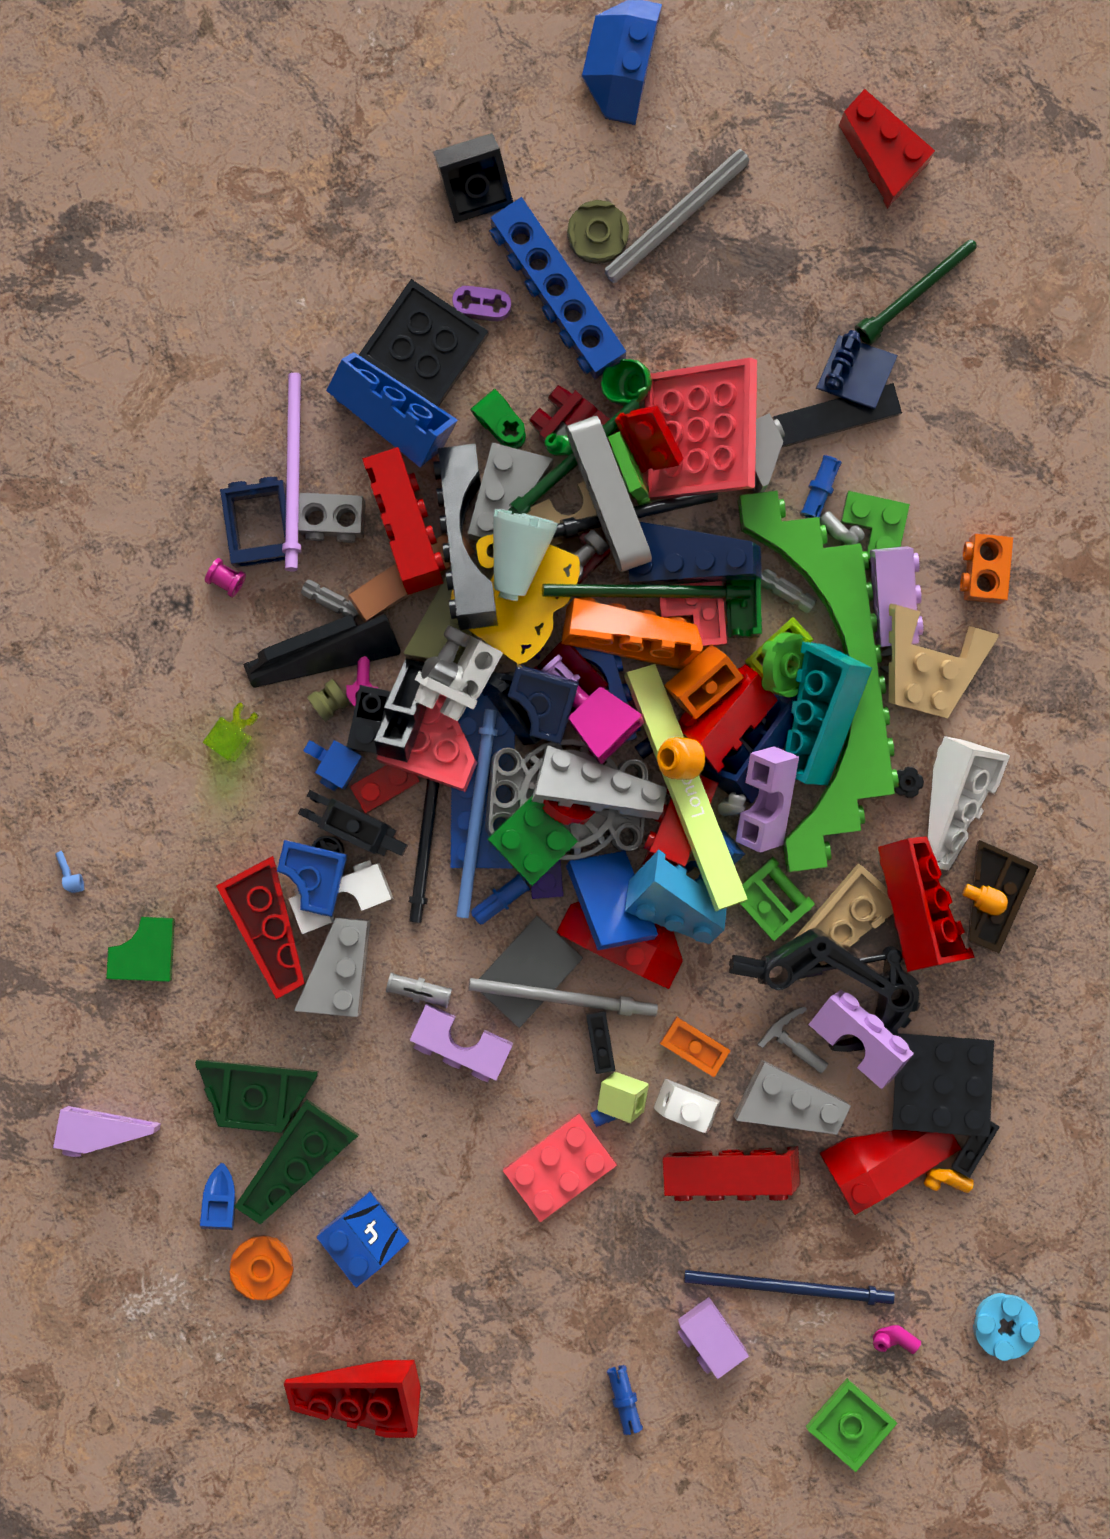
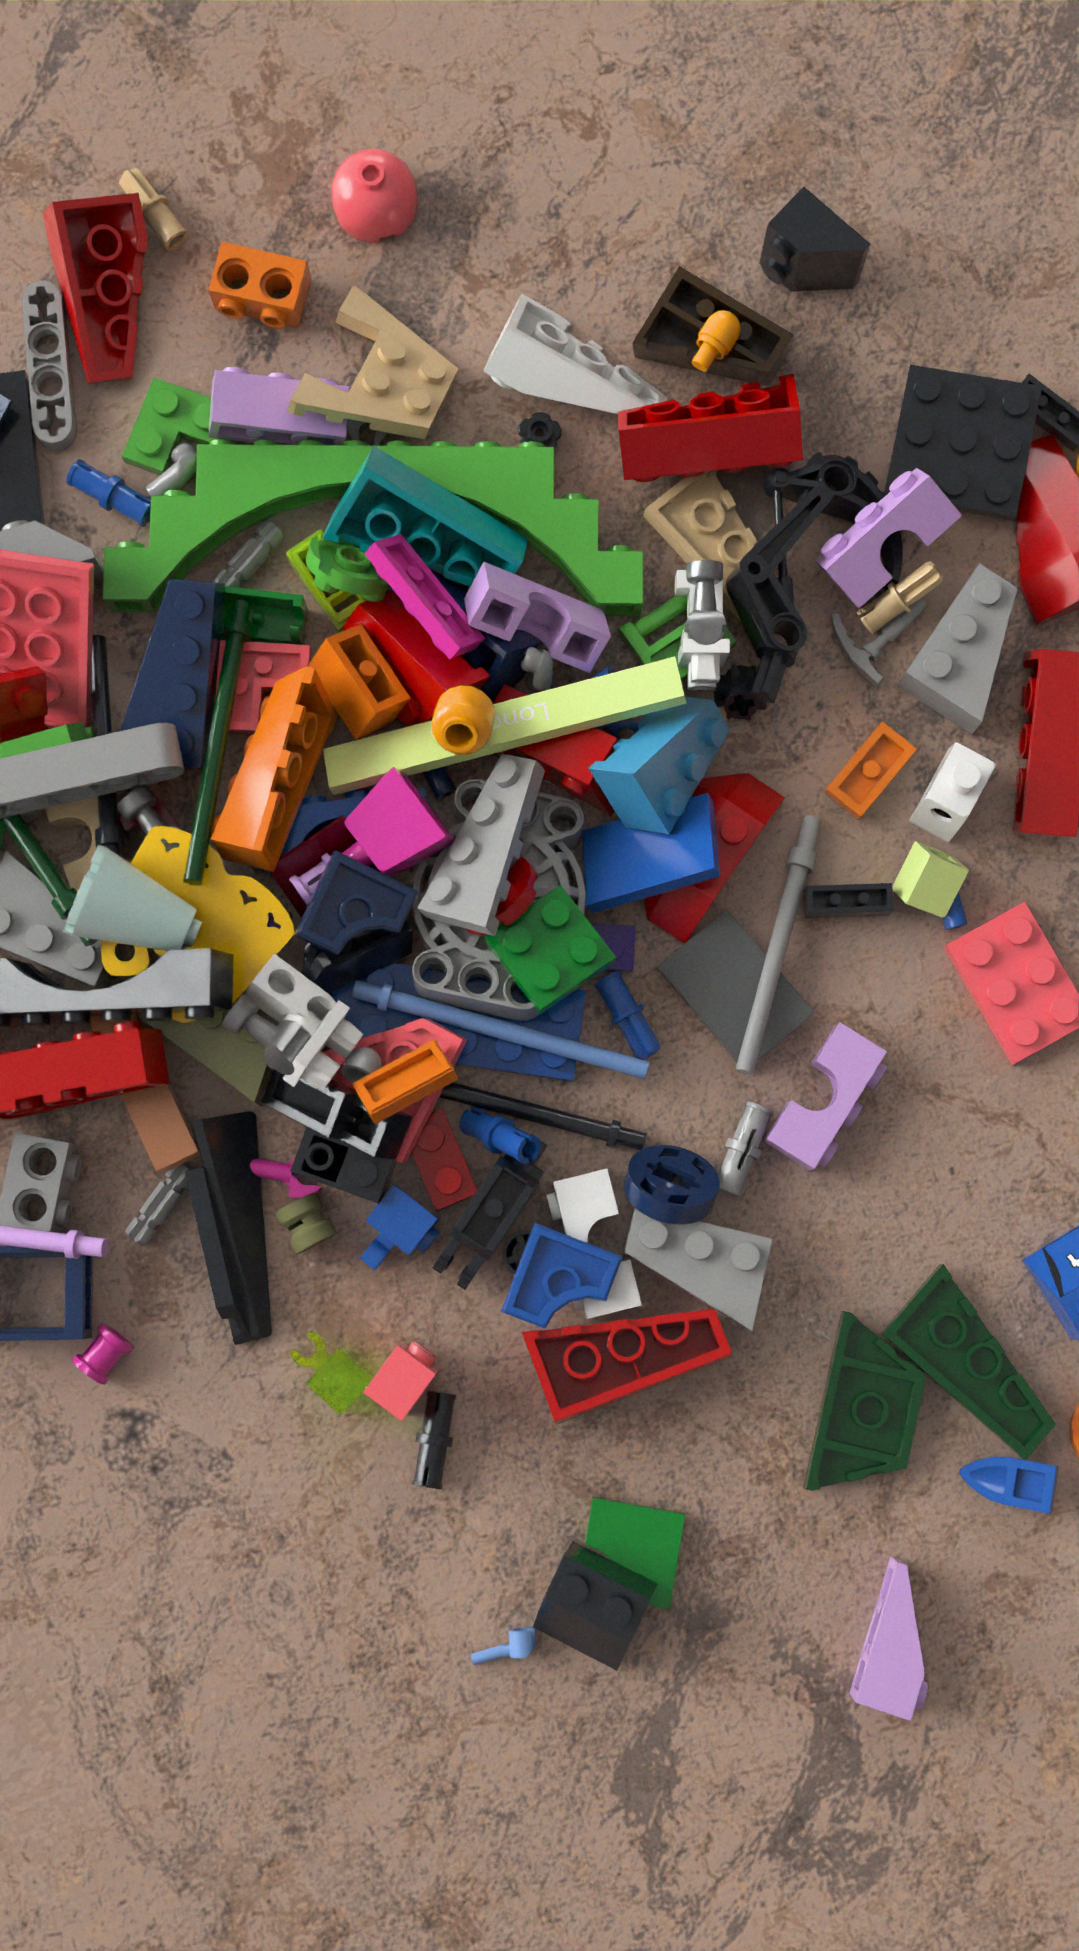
camera: 85 degrees left, 5 degrees down
(102, 928) = (594, 1605): none -> black slope
(197, 807) = (434, 1440): none -> black pin
(232, 781) = (403, 1379): none -> coral brick
(373, 940) = (651, 1187): none -> dark blue piece
(404, 823) = (500, 1135): none -> blue pin
(427, 754) = (405, 1081): none -> orange tile
(436, 724) = (361, 1063): none -> light grey hinge
(737, 944) = (733, 693): none -> black gear
(767, 718) = (424, 596): none -> dark pink plate
(777, 917) = (702, 635): none -> hips
(821, 1053) = (900, 597): none -> tan axle
(908, 426) = (47, 365): none -> light grey beam
(980, 454) = (99, 268): none -> red wedge
(1035, 483) = (154, 209): none -> tan axle
(1068, 640) = (374, 195): none -> coral cylinder
(1070, 958) = (812, 247): none -> black slope

